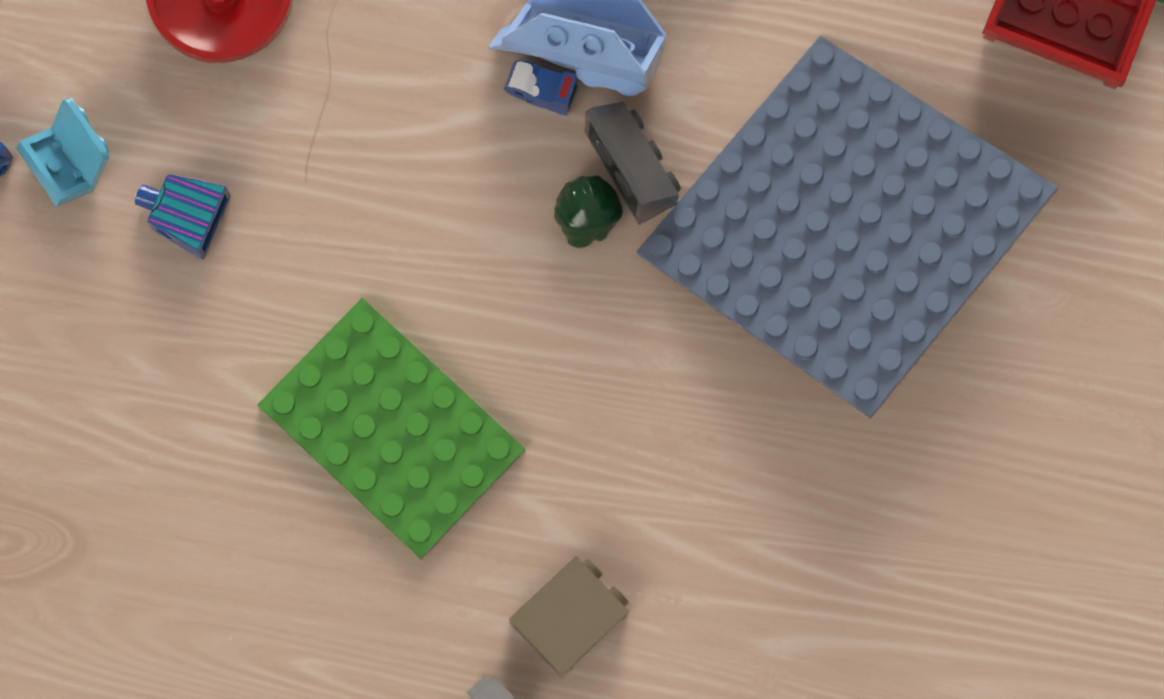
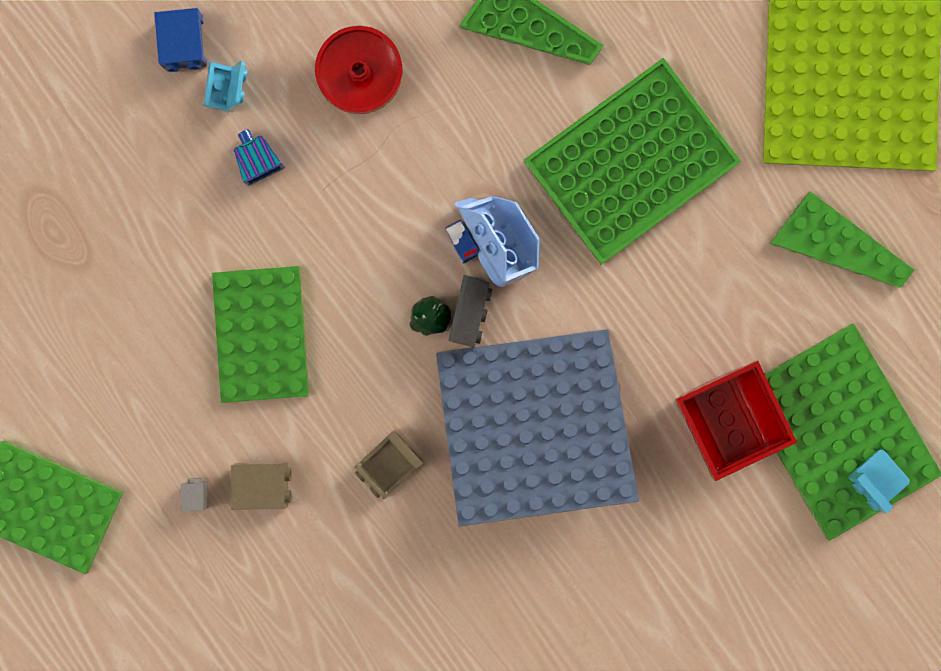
camera: 45 degrees right, 10 degrees up
(707, 441) = (388, 465): none -> dark tan panel

